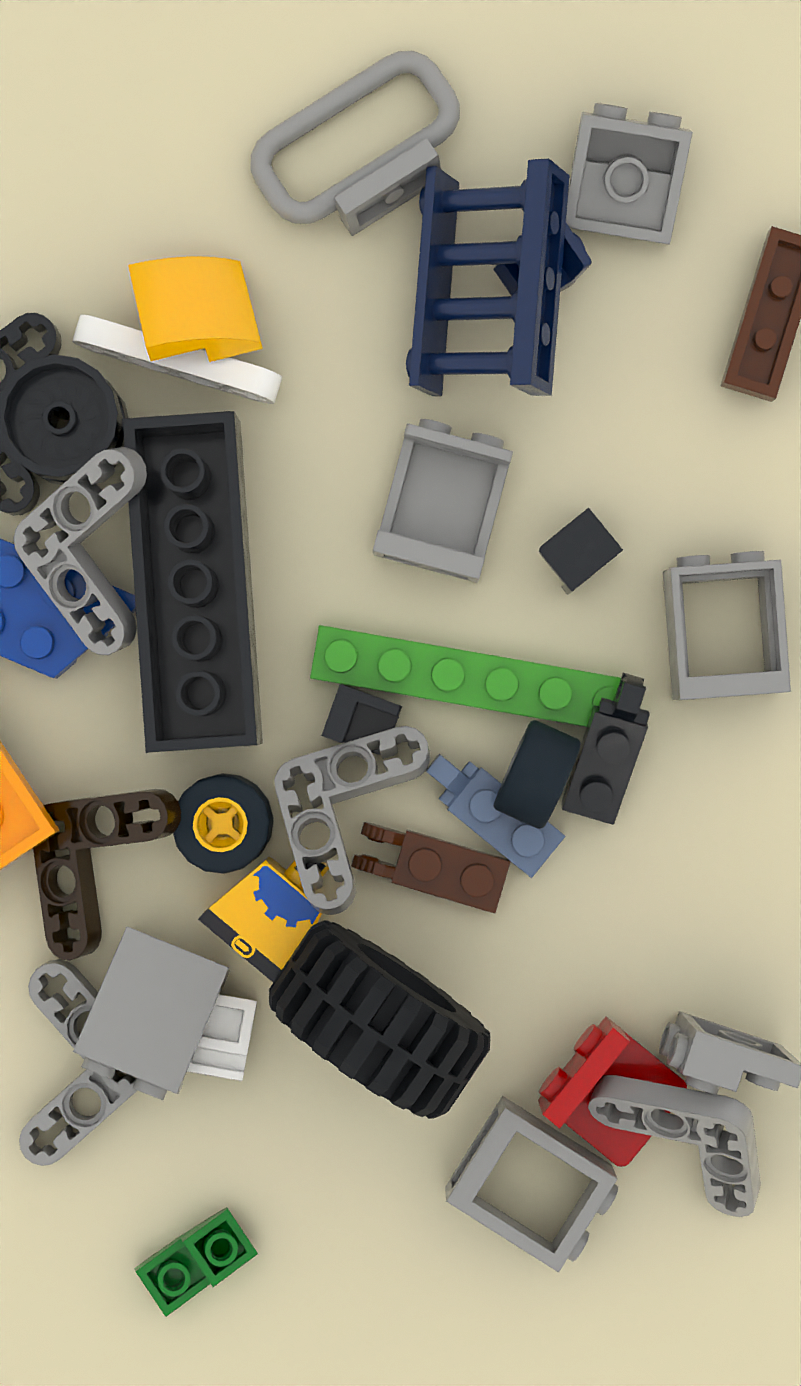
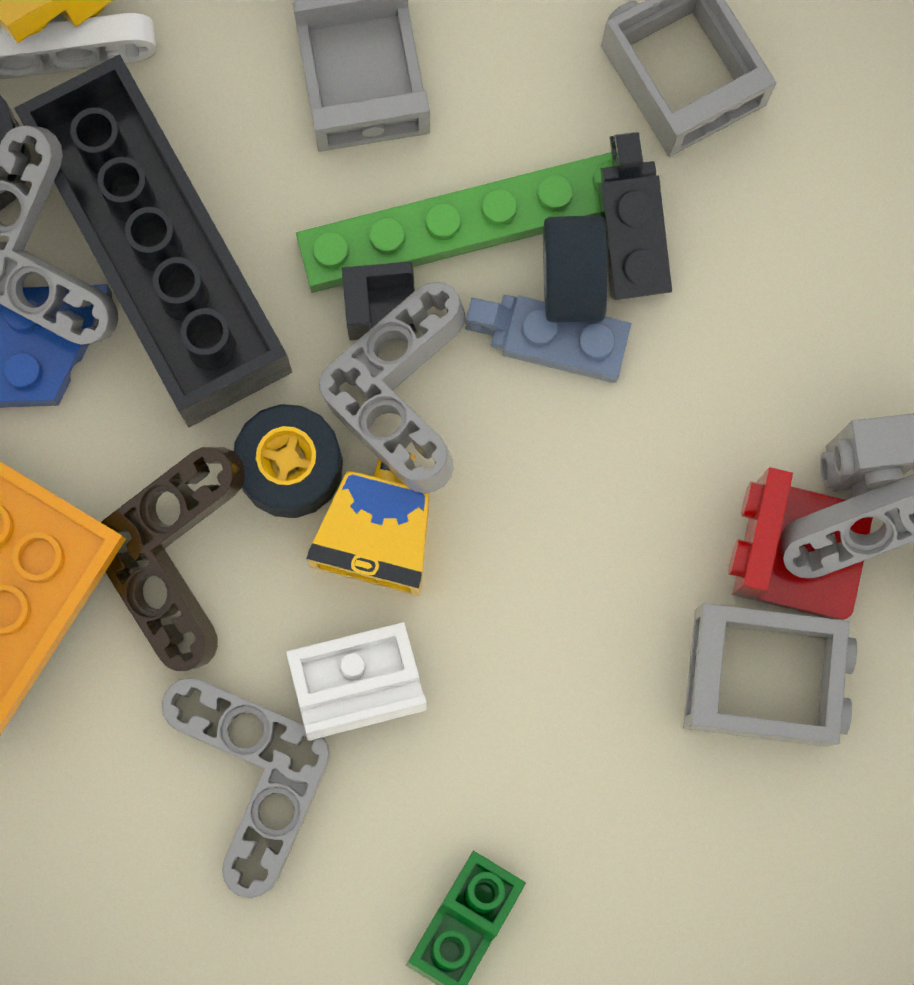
camera: 30 degrees left, 10 degrees down
(150, 1013) = (301, 678): light grey panel -> none
(378, 1020) = (535, 551): black tyre -> none
(438, 867) = (521, 412): reddish brown hinge -> none
(579, 550) = (515, 49): black panel -> none

